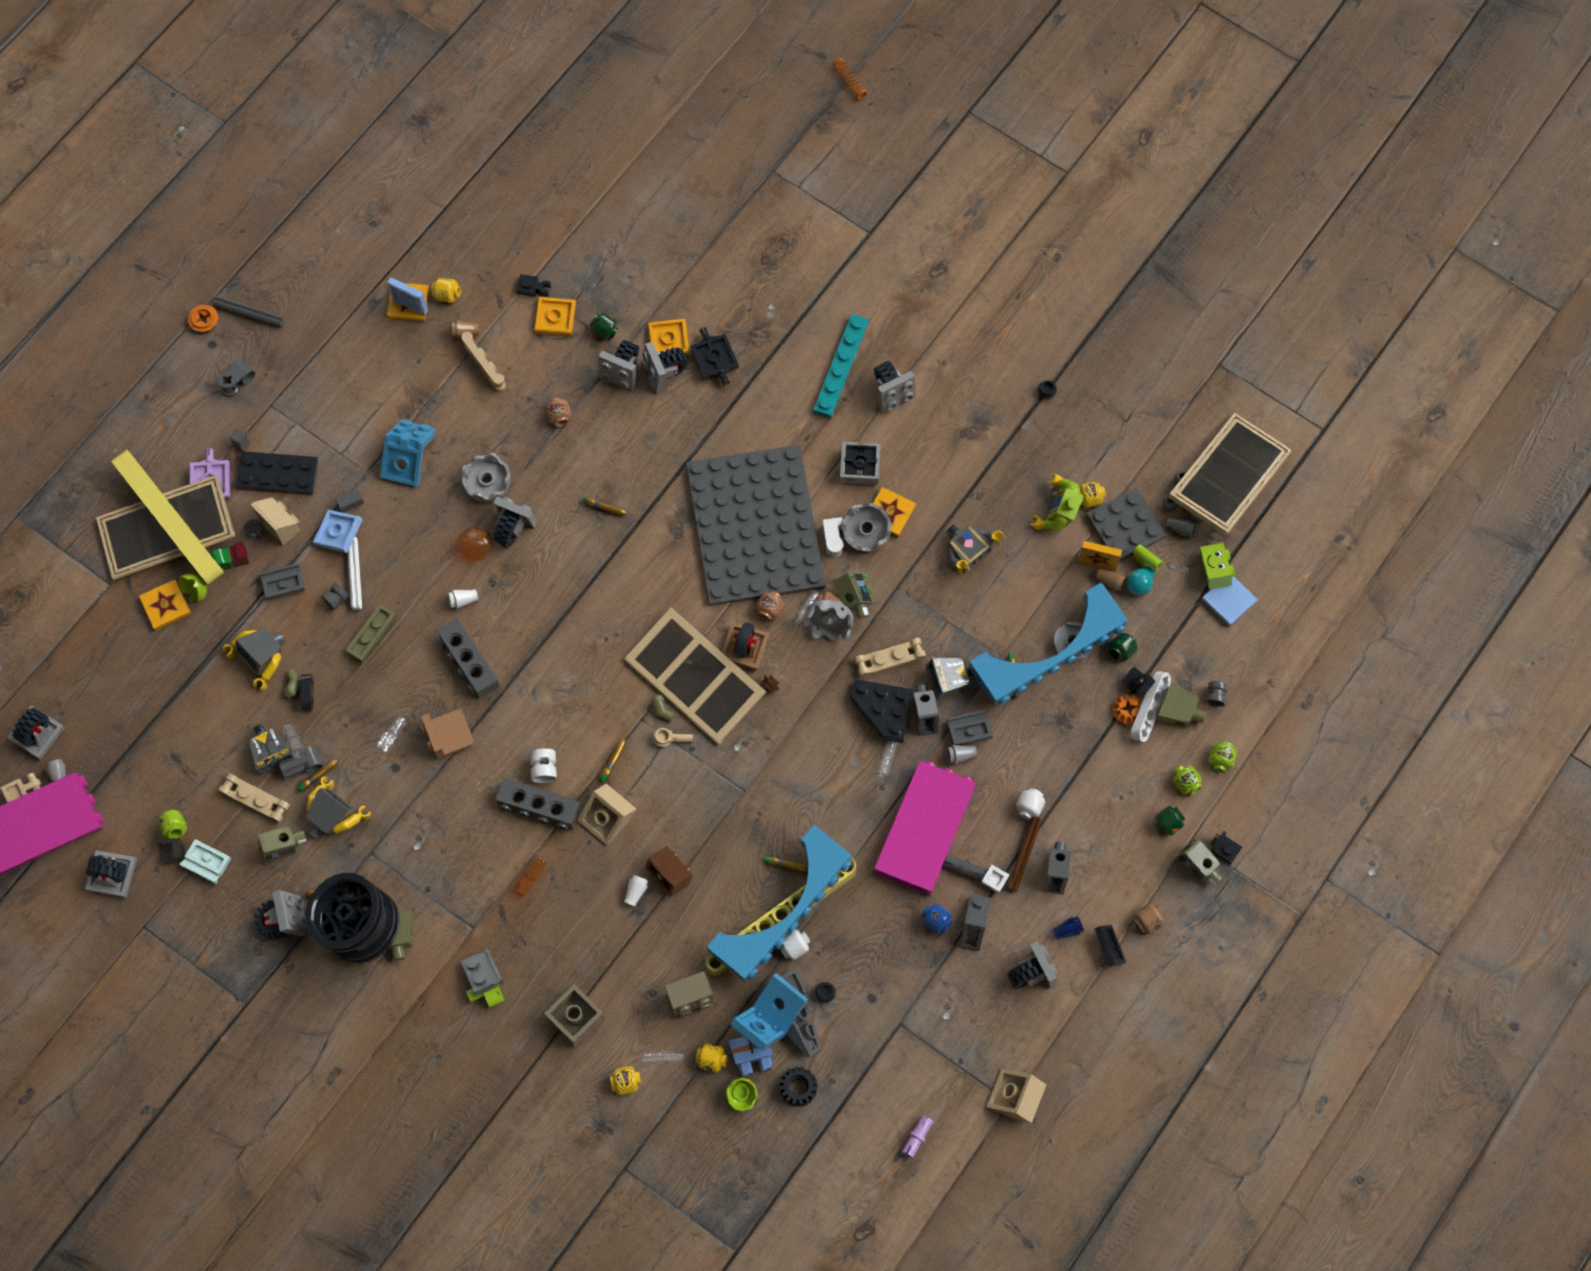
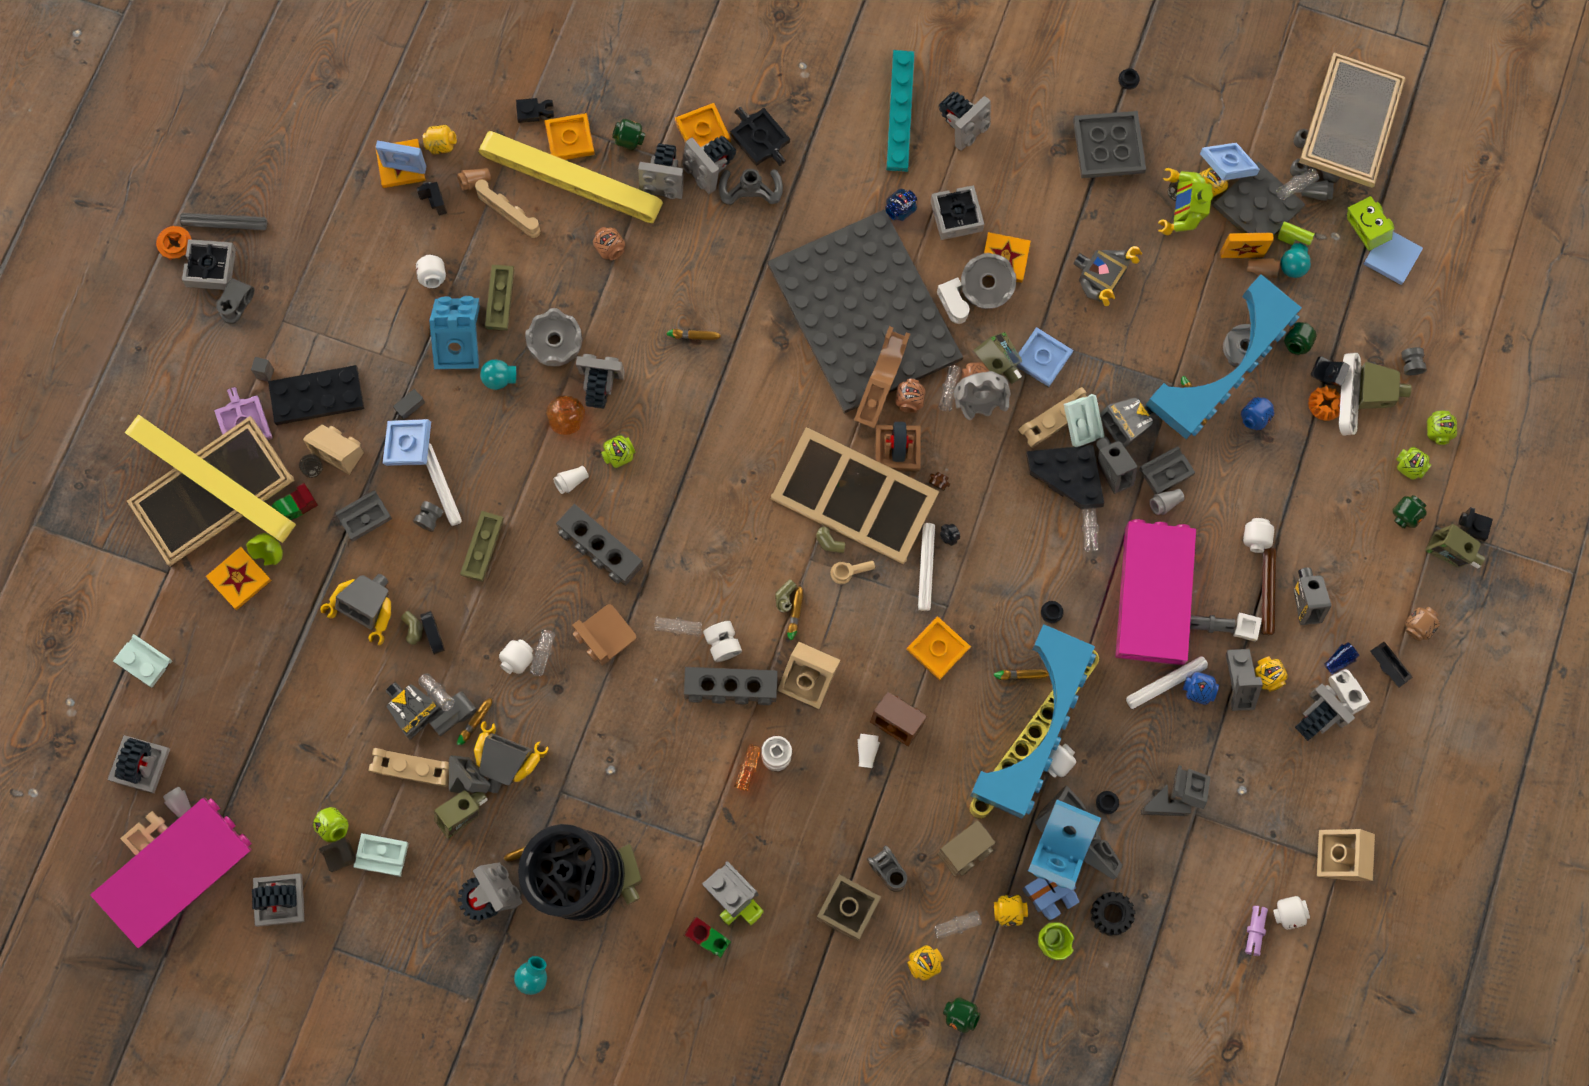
camera: 20 degrees left, 5 degrees up
(66, 650) = (142, 661): none -> light aqua plate
(224, 343) = (208, 264): none -> piece
(294, 816) = (465, 776): none -> dark grey slope
(294, 995) = (531, 976): none -> teal piece
(368, 731) = (516, 656): none -> white head
(403, 396) = (430, 271): none -> white head
(426, 335) = (433, 193): none -> black bracket
(430, 495) = (497, 374): none -> teal piece
(449, 1006) = (707, 937): none -> leg
(453, 433) = (499, 297): none -> olive plate
(509, 585) = (618, 451): none -> lime head
(511, 743) = (678, 626): none -> clear pin
(544, 349) = (570, 177): none -> light yellow beam
(557, 870) = (776, 753): none -> white wheel
(607, 743) = (782, 596): none -> olive arm
(619, 991) = (888, 868): none -> dark grey piece
(641, 1133) = (961, 1015): none -> dark green head
(693, 396) = (750, 186): none -> dark grey piece
(724, 823) = (938, 648): none -> light orange tile
(736, 752) = (926, 567): none -> white axle
(748, 584) = (882, 378): none -> medium nougat piece
(765, 730) = (950, 534): none -> black plate
(815, 444) = (901, 204): none -> clear blue head
(831, 819) = (1052, 612): none -> black plate
(867, 1008) = (1159, 806): none -> dark grey slope
(895, 604) = (1043, 357): none -> light blue tile
(899, 999) = (1191, 787): none -> dark grey plate
(909, 906) = (1166, 682): none -> white axle
(910, 665) = (1084, 420): none -> light aqua plate
(952, 1130) = (1292, 912): none -> white head
(1002, 924) = (1271, 673): none -> yellow head
(1011, 440) = (1109, 144): none -> dark grey plate
(1064, 701) = (1257, 413): none -> blue head
(1065, 959) = (1349, 690): none -> white leg
(1109, 481) = (1229, 161): none -> light blue tile
(1162, 515) = (1297, 184): none -> clear pin

